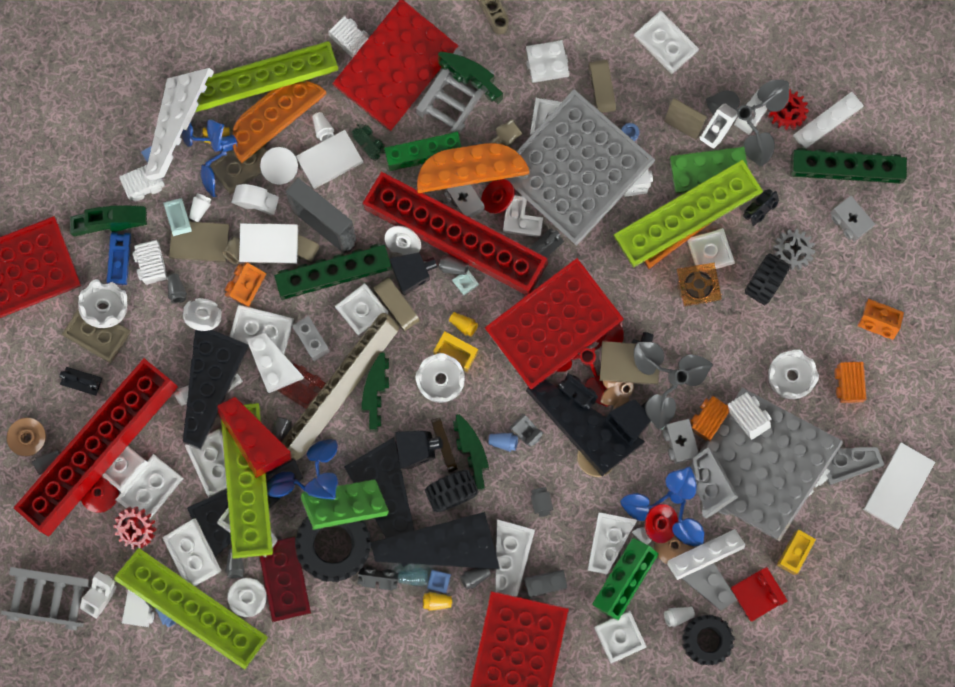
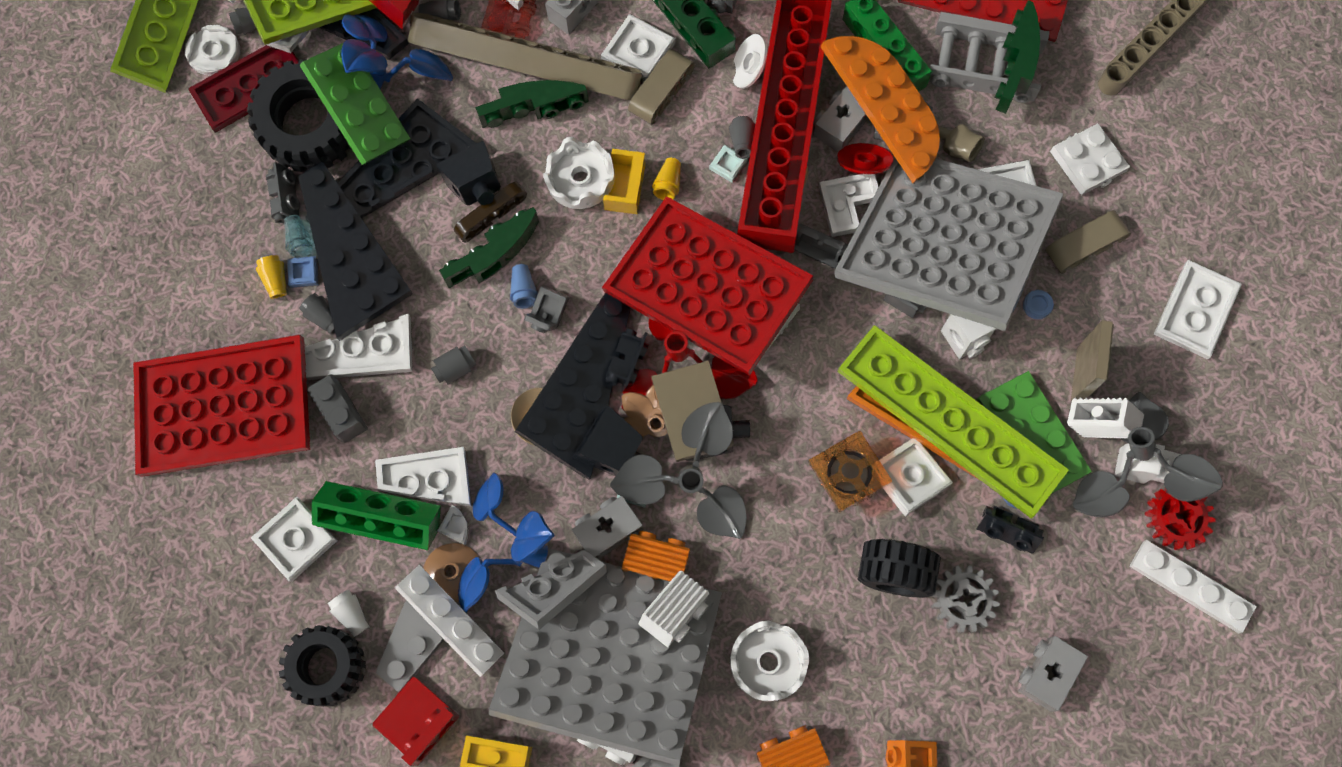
camera: 75 degrees right, 5 degrees down
(412, 271) = (713, 88): black torso -> none
(451, 491) = (423, 235): black tyre -> none
(663, 531) = (463, 546): red dish -> none
(896, 164) = (1153, 720): dark green brick -> none

